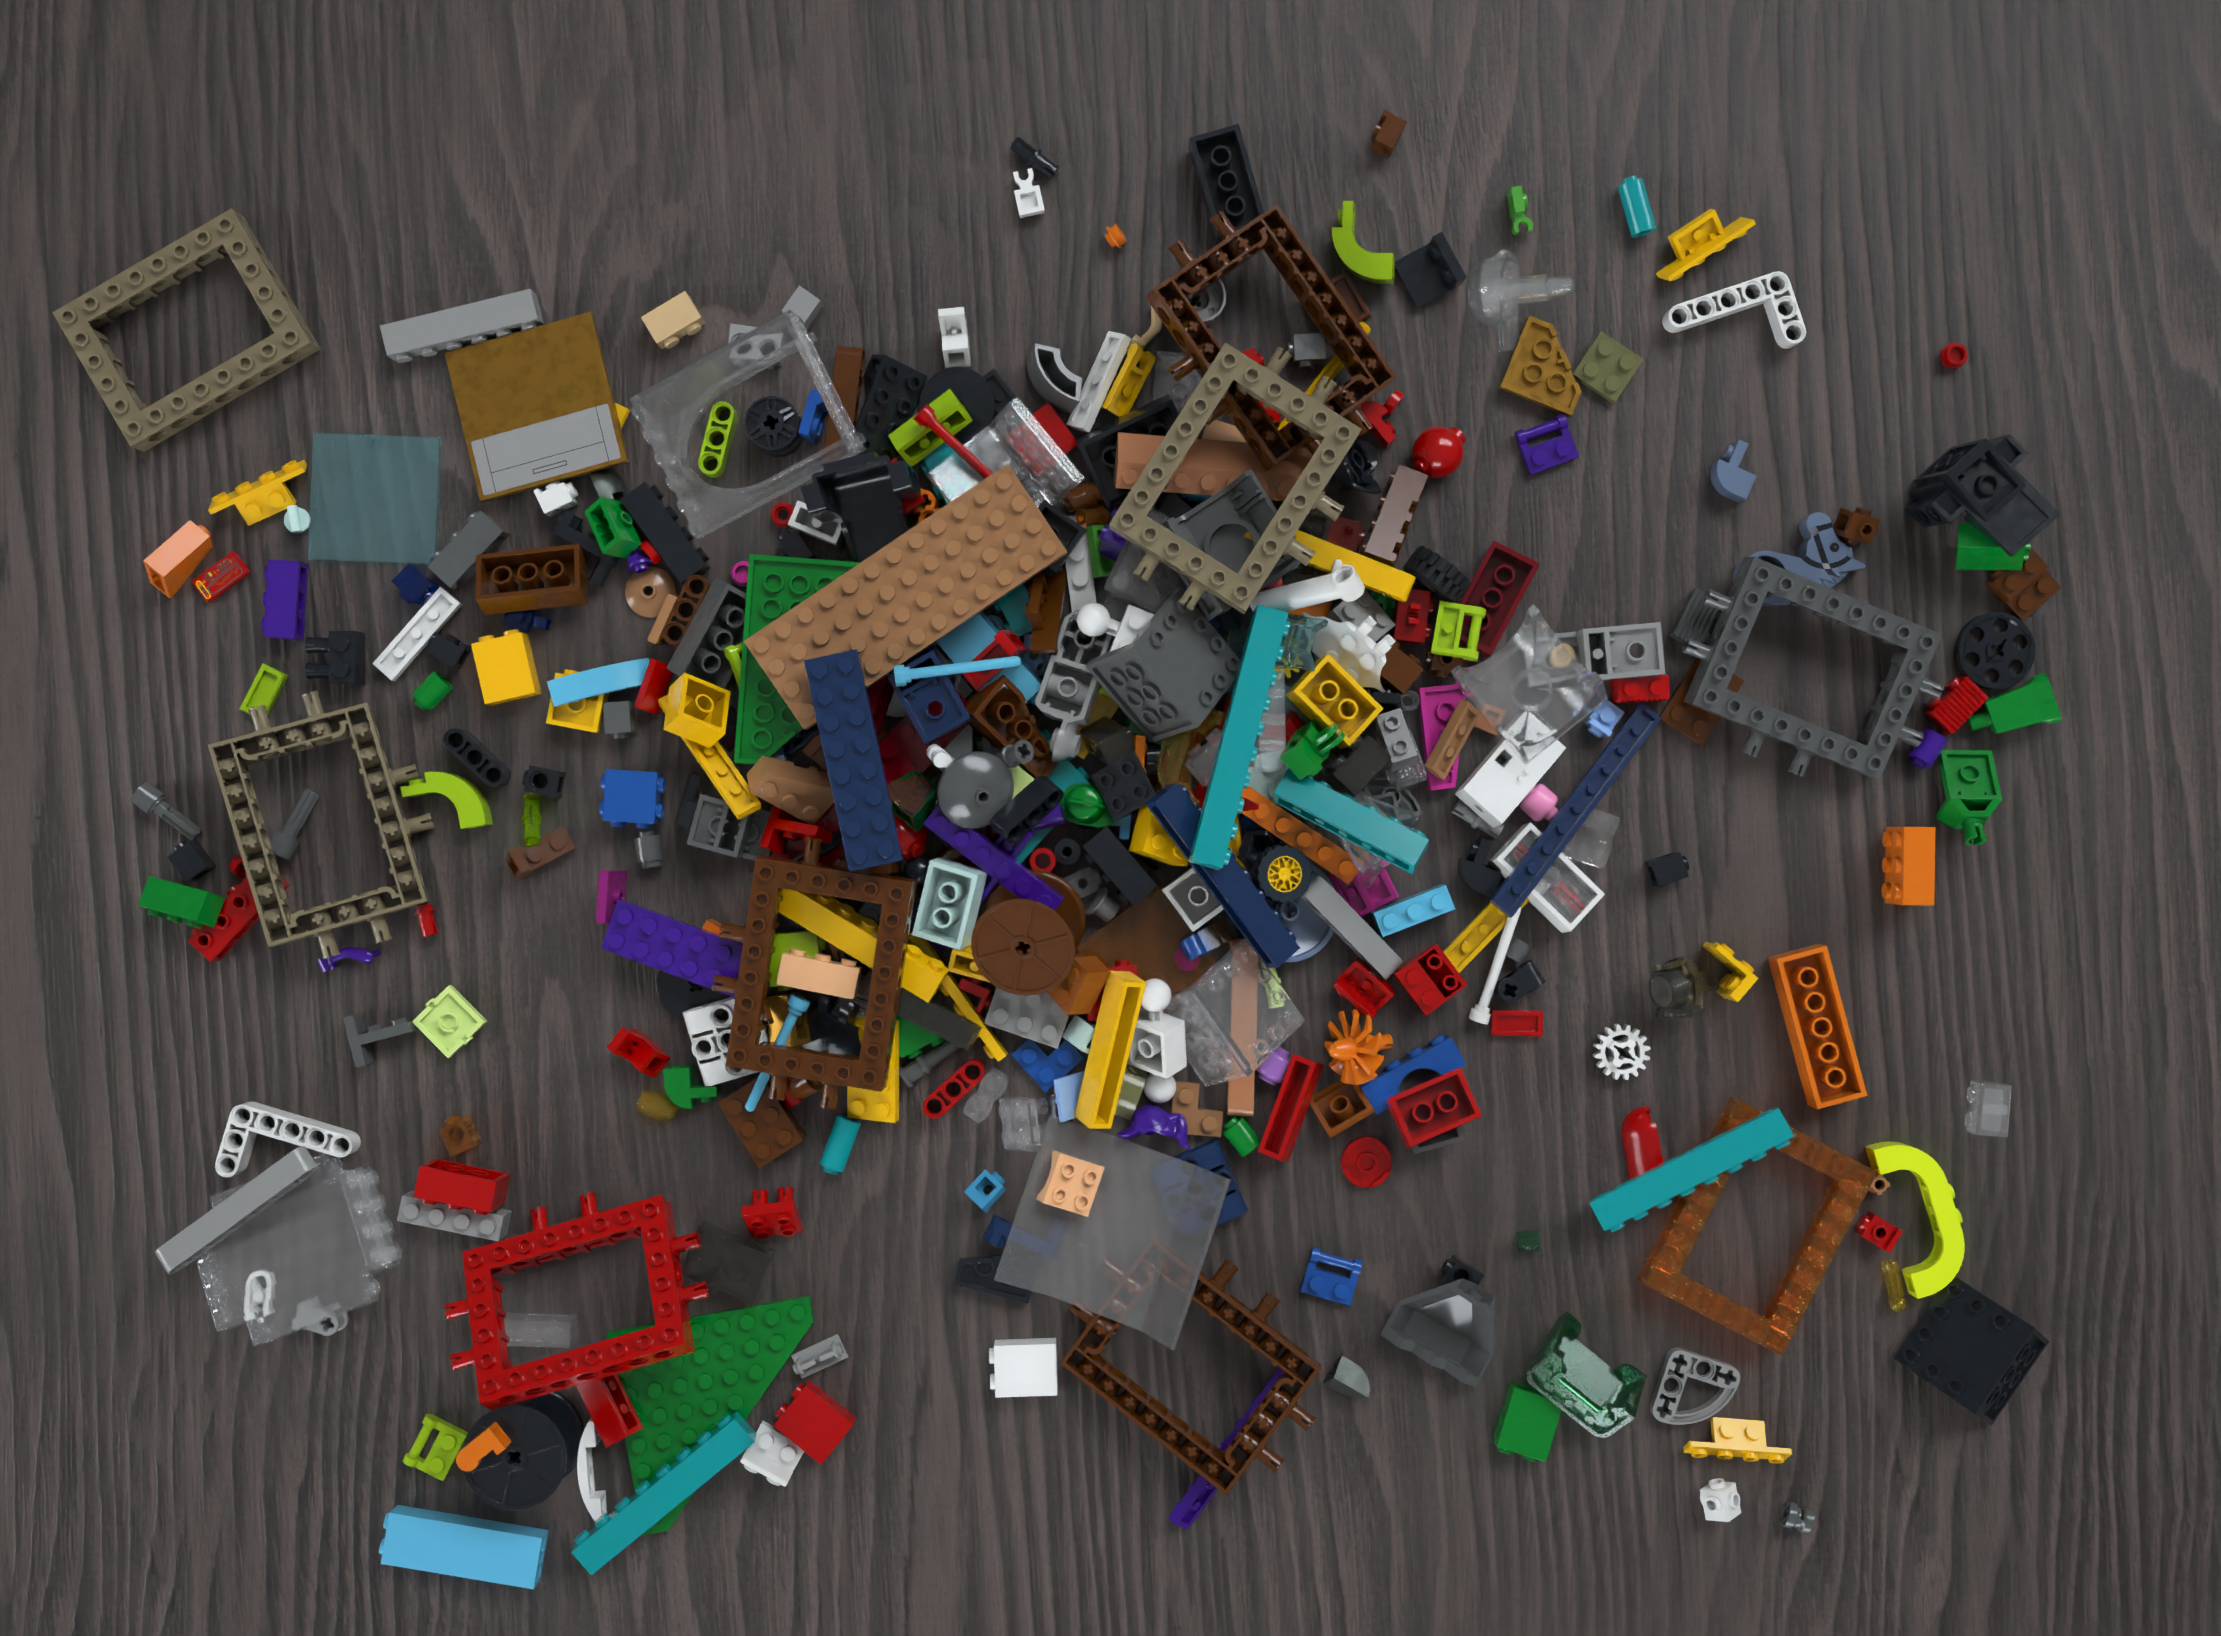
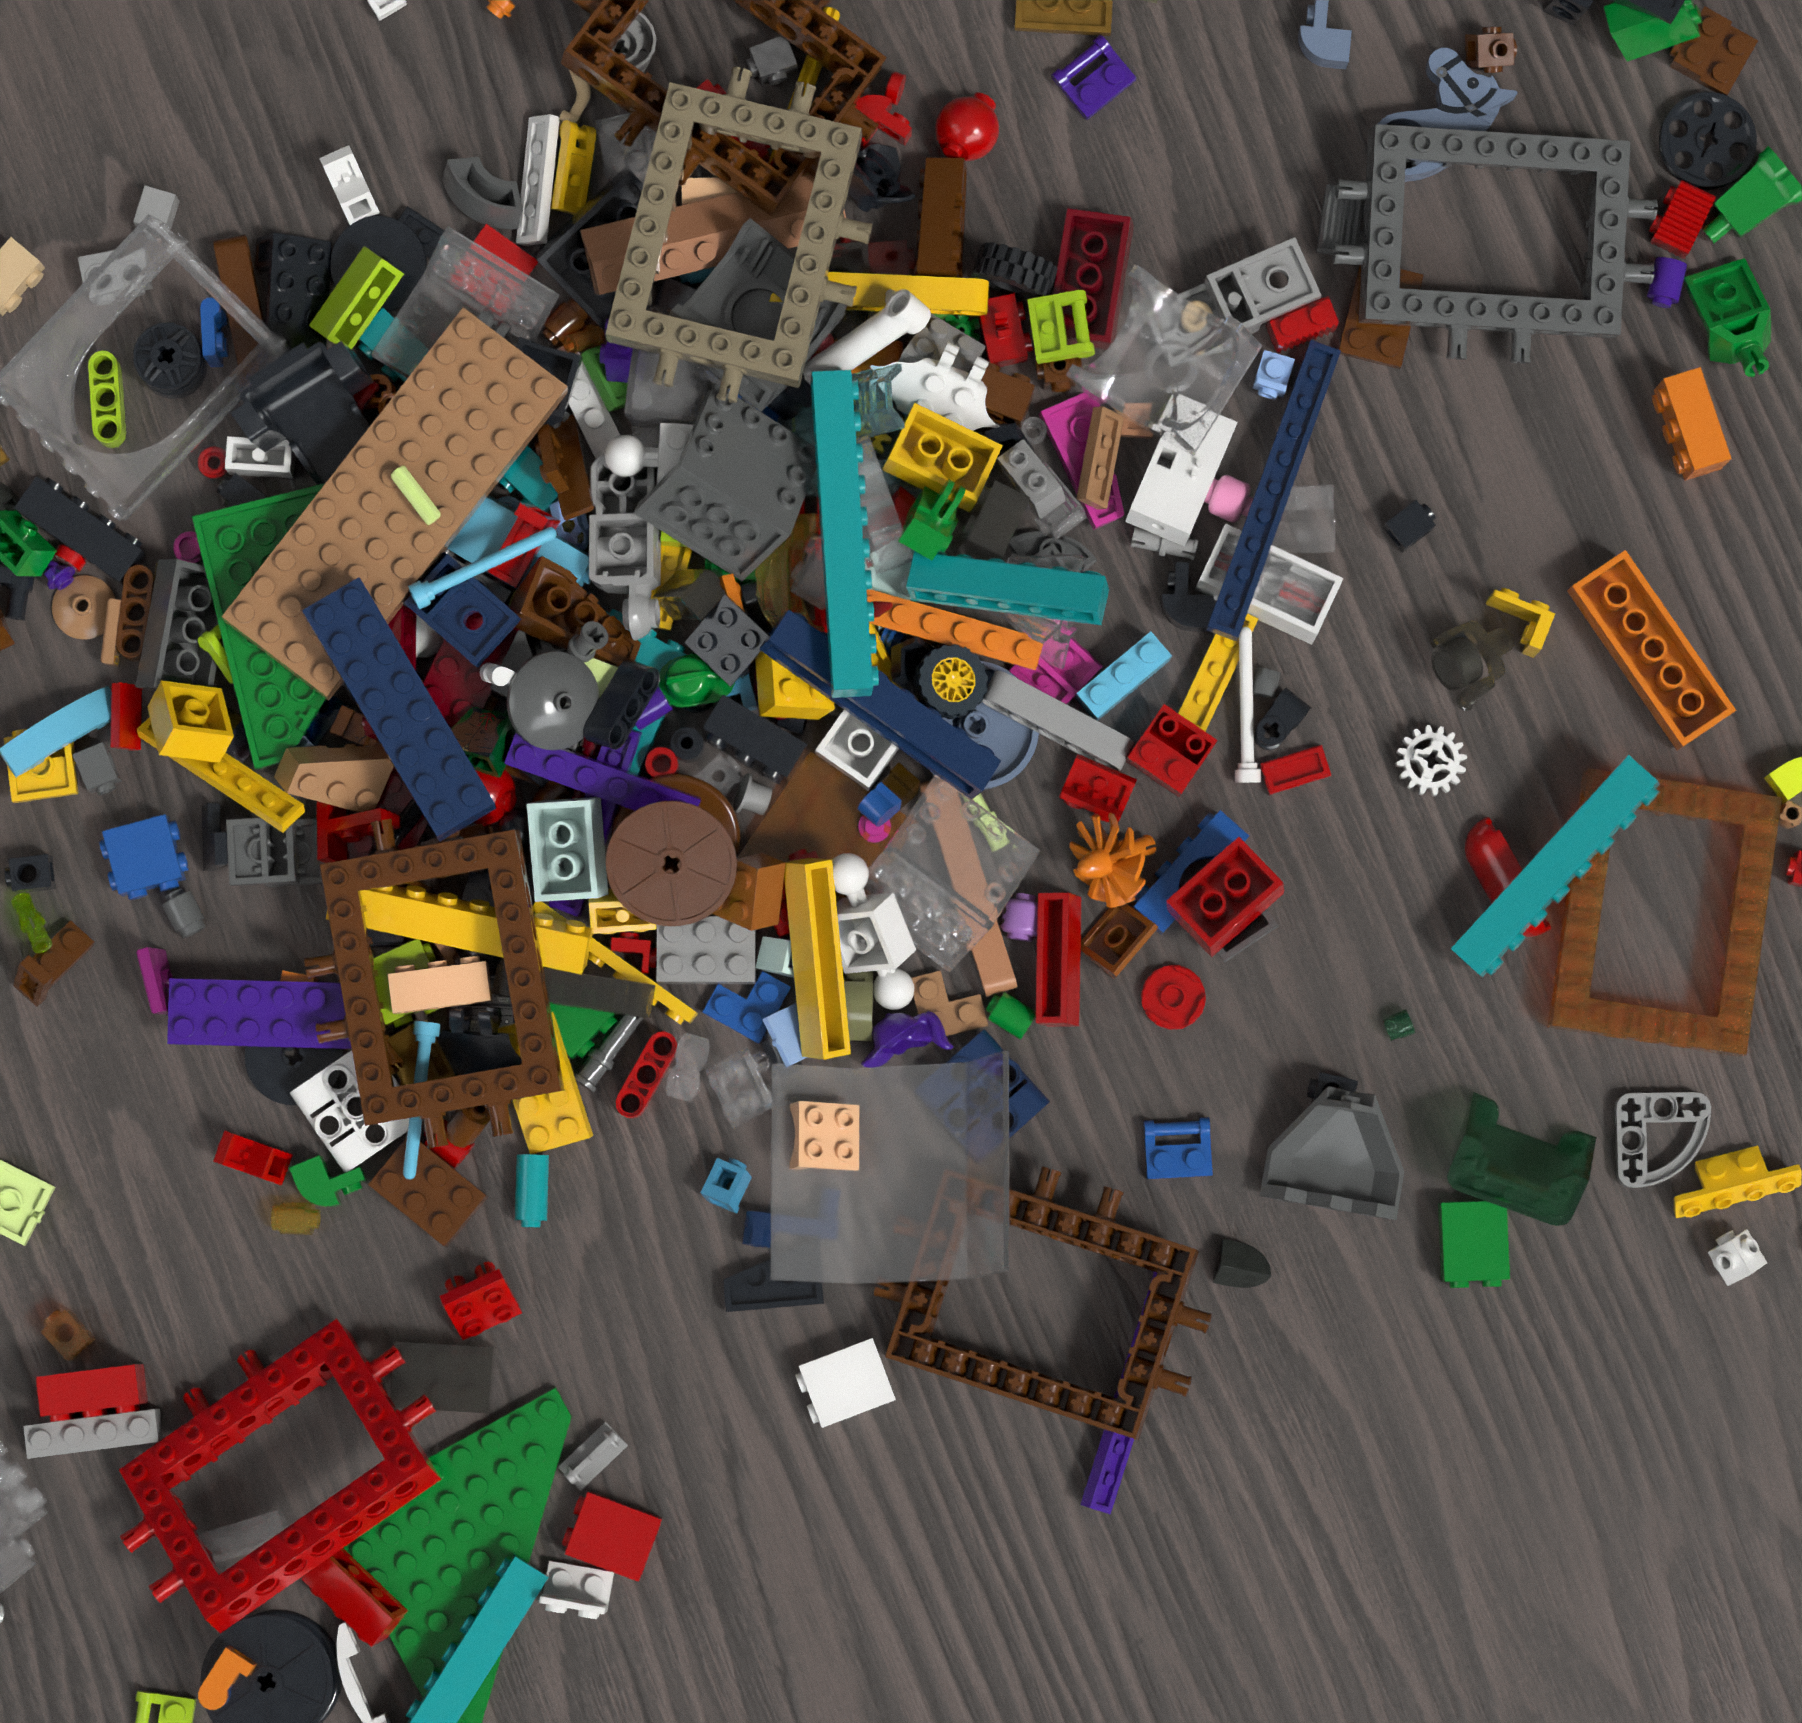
camera: 25 degrees left, 5 degrees down
(922, 598) = (415, 495): none -> yellowish green axle
(927, 418) = (350, 288): red piece -> none

